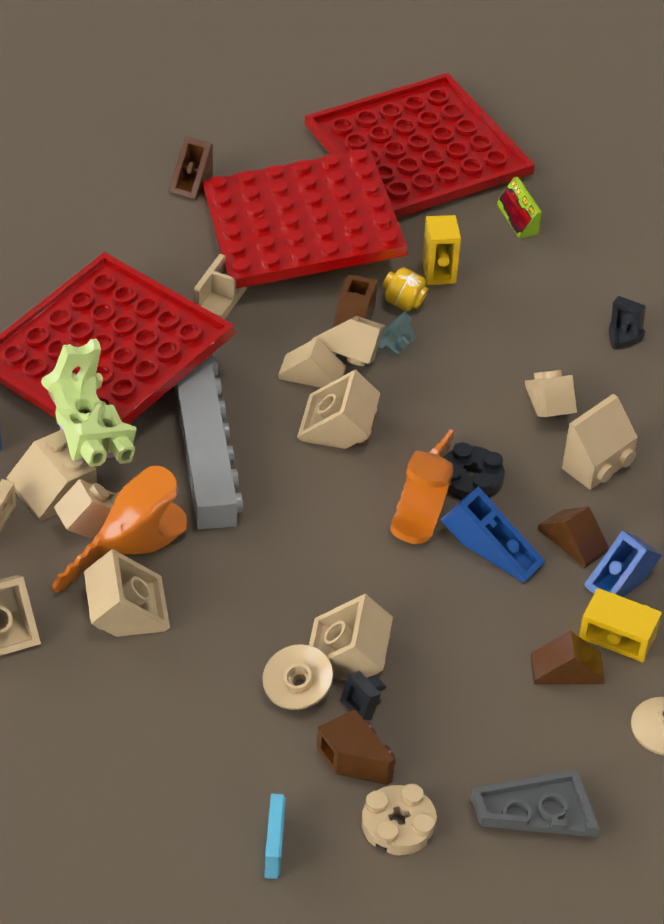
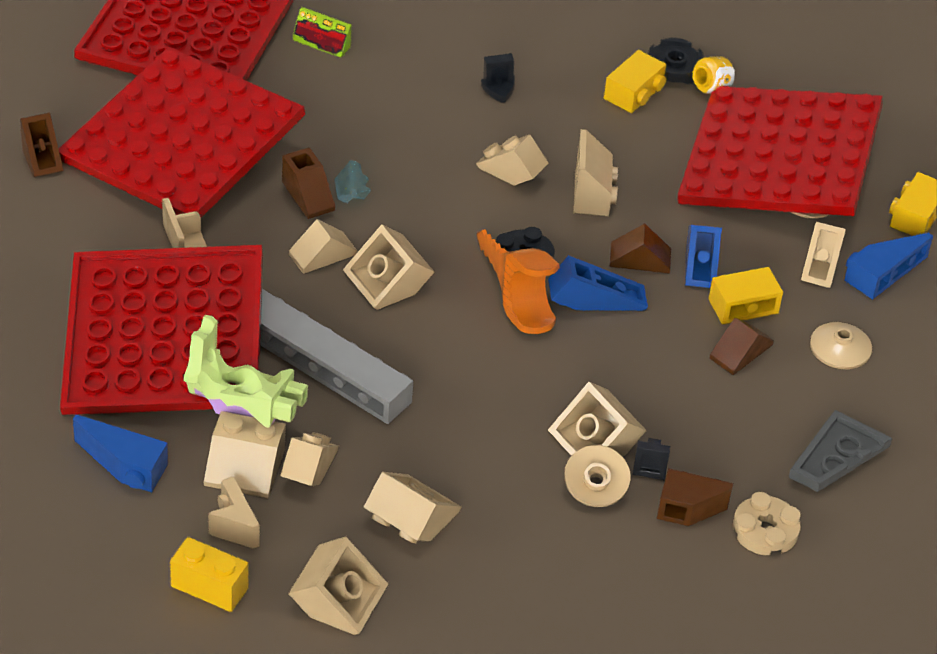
camera: 45 degrees left, 0 degrees up
(138, 523) = (365, 437): orange animal -> none
(275, 836) = (713, 593): medium azure tile -> none
(355, 339) = (335, 204): tan slope -> none
(405, 289) = (322, 141): yellow head -> none
(441, 250) = (319, 93): yellow brick -> none

